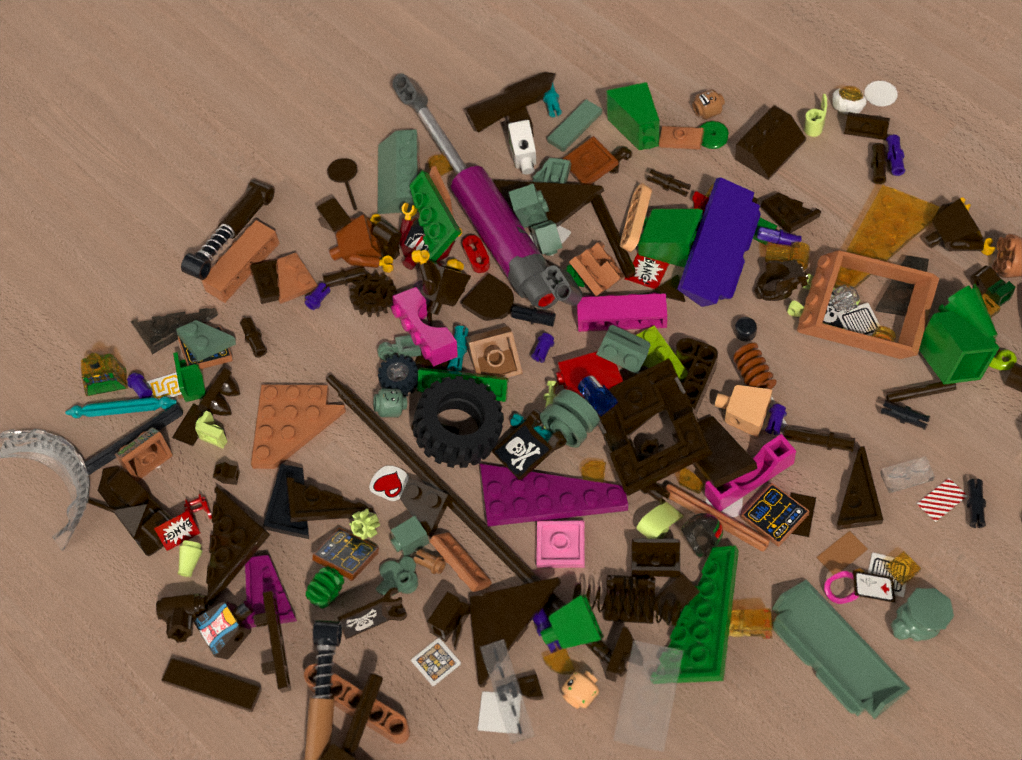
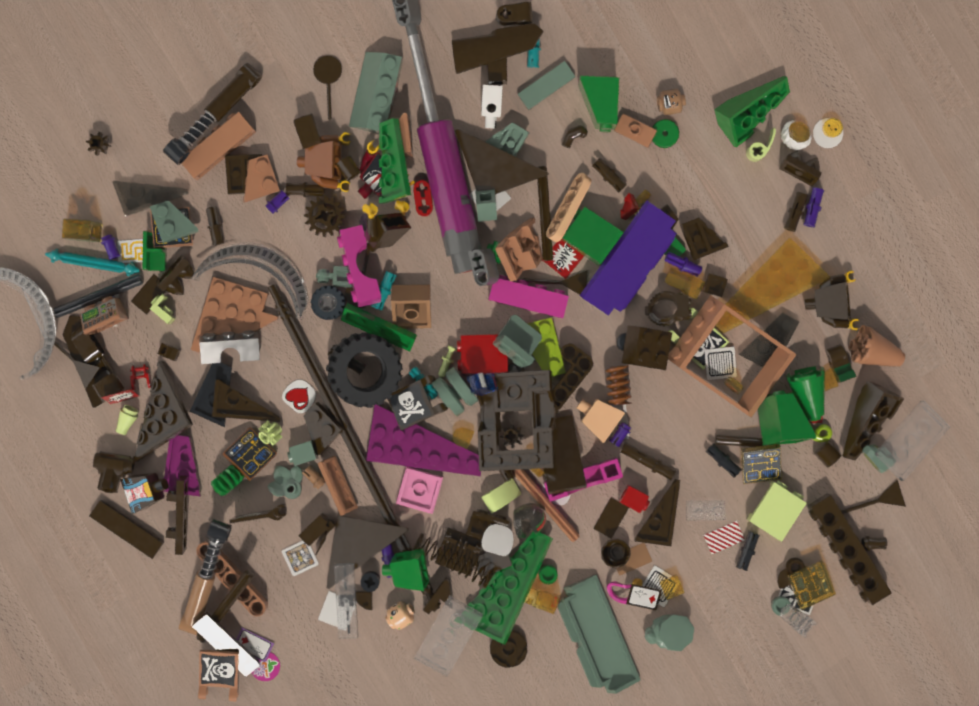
camera: 10 degrees right, 30 degrees up
(109, 291) = (93, 143): none -> dark brown gear
(311, 353) = (264, 258): none -> windscreen
(314, 436) = (213, 345): none -> arch
(389, 402) = (314, 327): sand green head -> none
(441, 163) = (413, 93): clear yellow tile -> none
(490, 299) = (423, 248): dark brown tile -> none
(520, 71) = (517, 14): none -> dark brown piece
(529, 205) = (478, 177): sand green brick -> none
(531, 666) = (372, 578): none -> black wheel
(533, 315) = (457, 279): black axle -> none
(543, 347) = (454, 310): dark purple pin -> none
(559, 662) = (388, 585): clear yellow tile -> none
(590, 161) = (547, 133): dark orange tile -> none
(672, 566) = (497, 540): none -> white sticker
(731, 698) = (510, 654): none -> dark brown tile
(747, 596) = (548, 574): none -> green tile
(769, 142) = (710, 162): dark brown slope -> none
(771, 320) = (646, 347): none -> dark brown brick
(775, 515) = (591, 515): black tile -> none
(794, 87) = (745, 111): none -> green wedge
(819, 481) = (634, 499): none -> red brick
(820, 247) = (715, 285): none -> dark brown plate
(820, 545) = (615, 553): none -> dark brown hair
(845, 298) = (715, 344): clear gear -> none
(883, 86) = (832, 127): none -> clear yellow tile
(950, 404) = (761, 464): none -> tile
(990, 449) = (777, 510): none -> yellowish green panel

